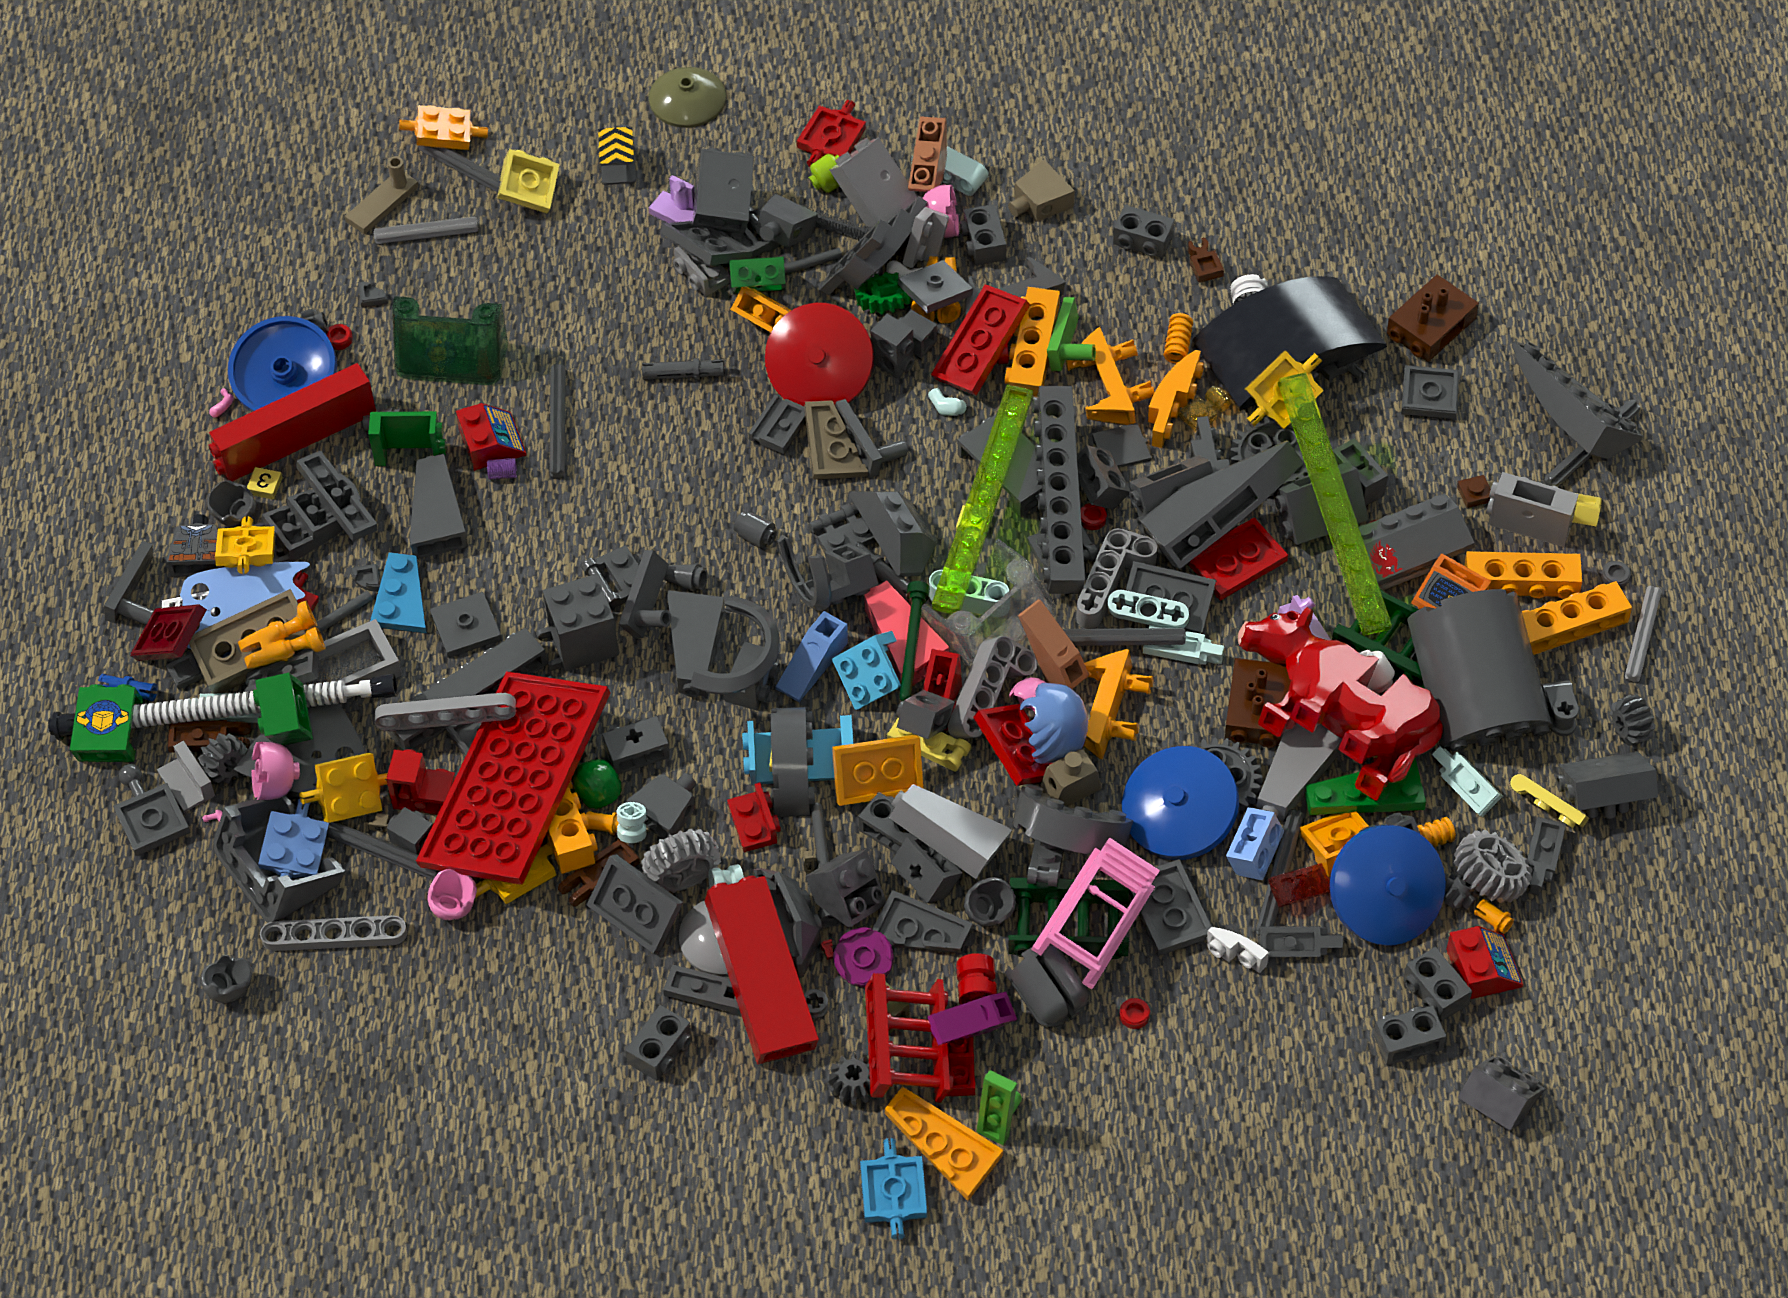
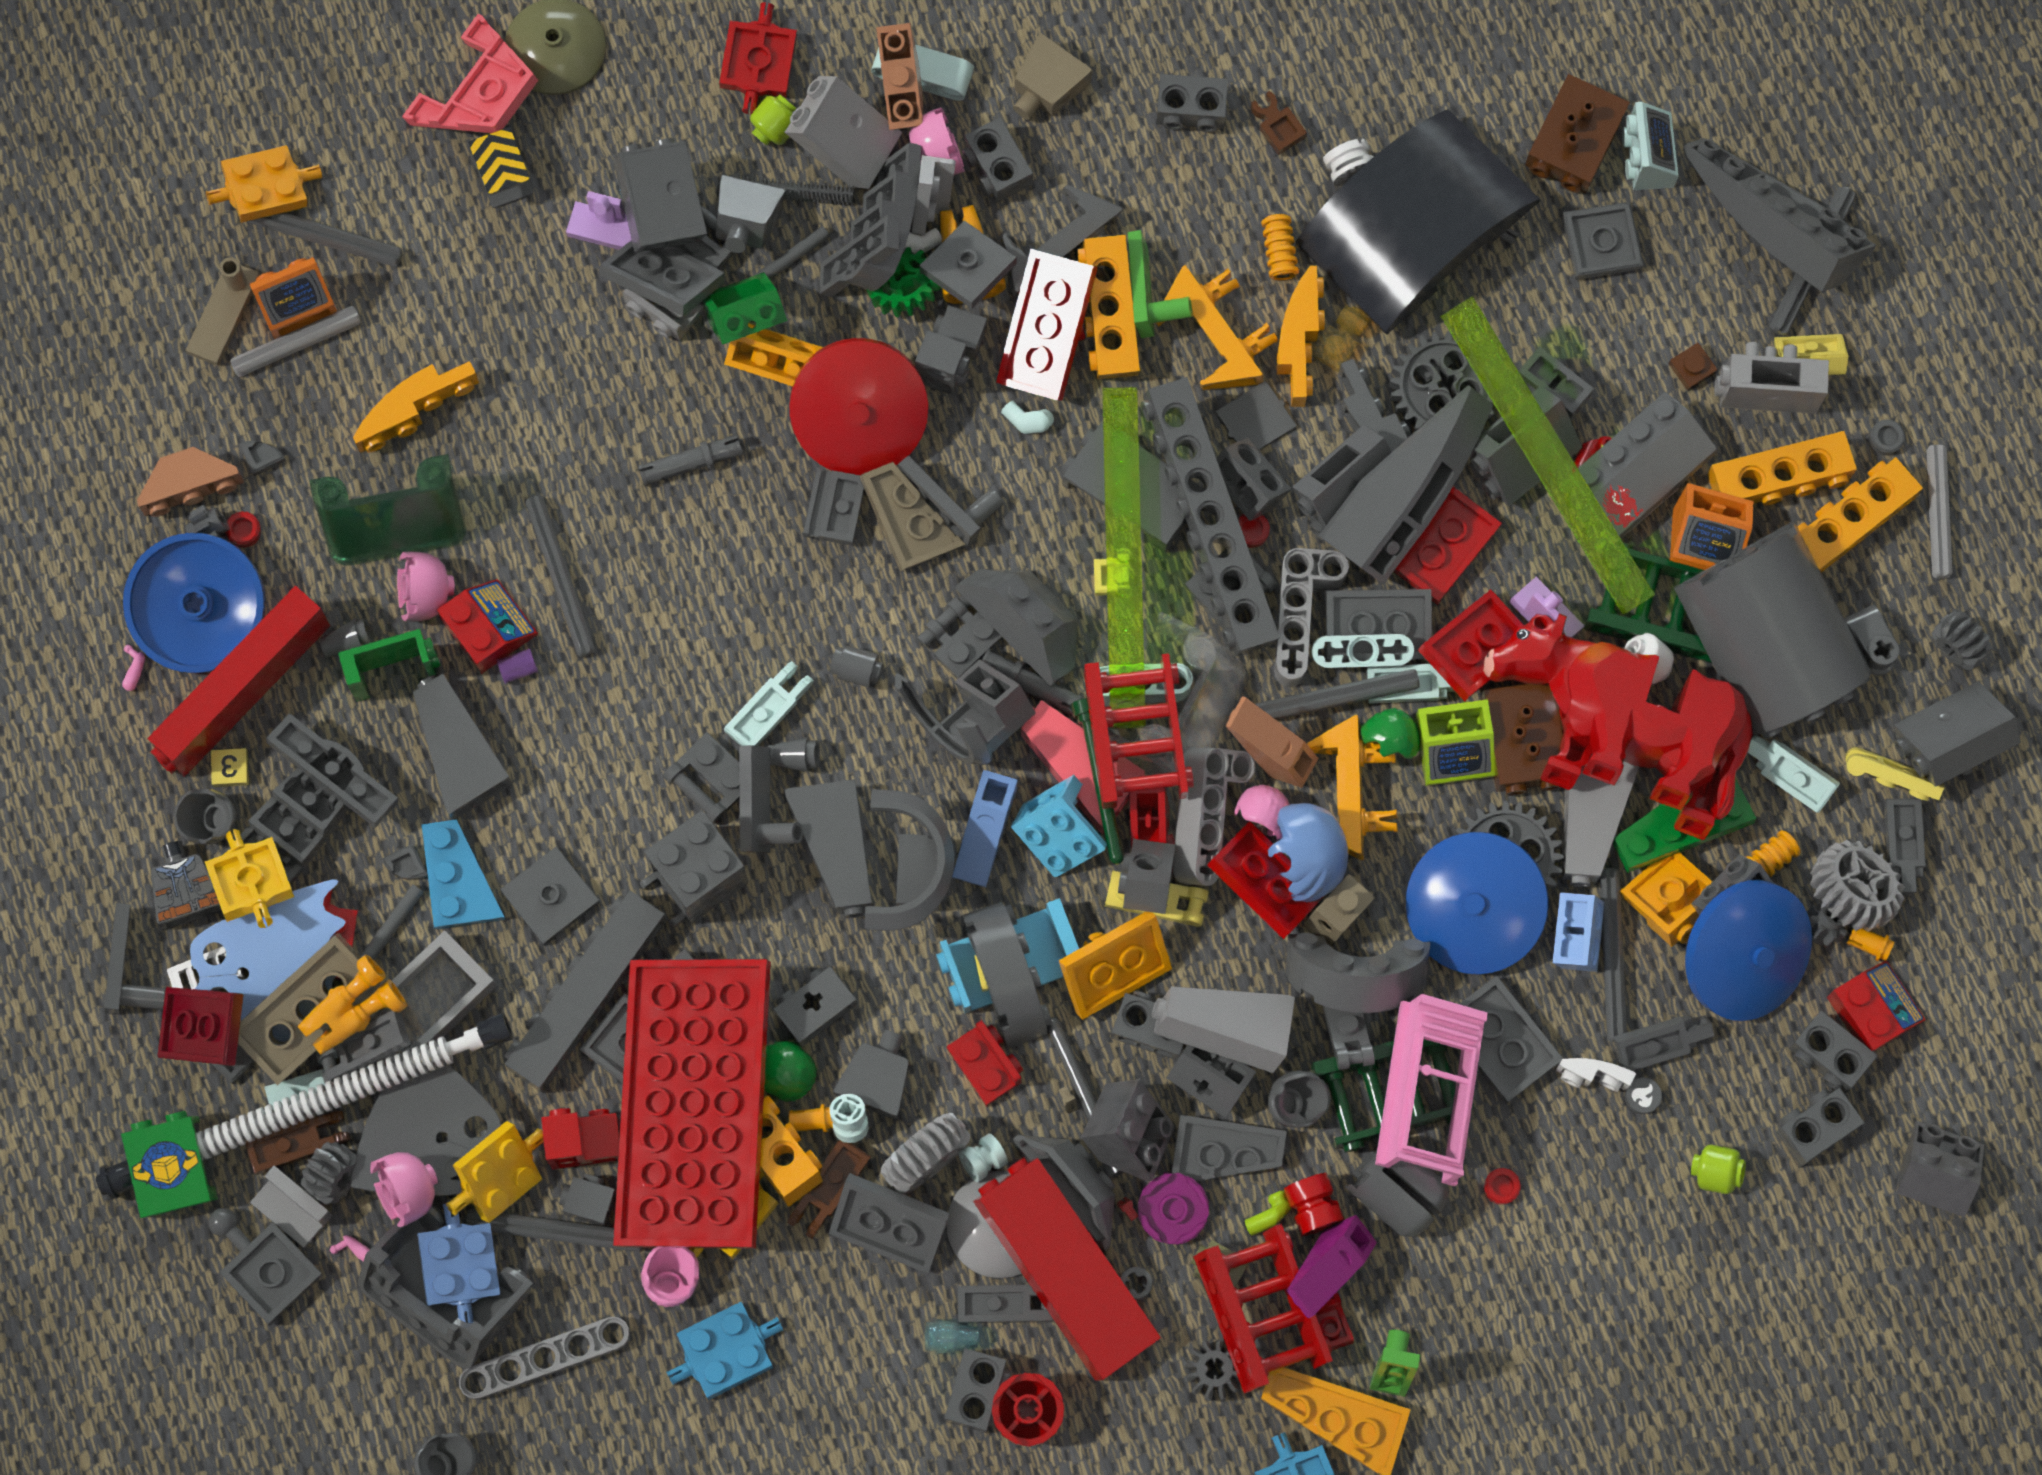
camera: 20 degrees left, 20 degrees up
(140, 686) = (171, 1103): blue pin -> none
(282, 709) = (390, 1108): green brick -> none
(308, 291) = (186, 479): none -> nougat slope
(379, 823) = (546, 1195): dark tan piece -> none
(433, 194) = (293, 297): none -> slope
(433, 717) = (580, 1043): light grey beam -> none
(454, 394) = (423, 585): none -> bright pink cylinder
(474, 964) = (724, 1350): none -> dark azure plate
(495, 280) = (398, 410): none -> light orange slope
(528, 180) = (403, 239): light yellow plate -> none
(622, 109) = (488, 92): none -> coral wing
(648, 998) = (949, 1336): none -> clear light blue cone
(681, 538) = (767, 708): none -> light aqua hinge
(693, 1060) = (1027, 1409): none -> red cylinder
(926, 591) = (1108, 751): none -> red fence
(949, 978) = (1270, 1217): none -> lime arm
(1153, 667) = (1393, 731): none -> green hair
(1201, 690) = (1456, 742): none -> lime slope
(1222, 623) = (1463, 643): none -> red plate
(1267, 391) = (1432, 295): yellow plate -> none
(1271, 978) = (1643, 1096): none -> dark grey tile
(1300, 885) = (1643, 968): clear red plate -> none
(1316, 1044) = (1719, 1169): none -> lime head
(1485, 336) = (1651, 148): none -> light aqua slope

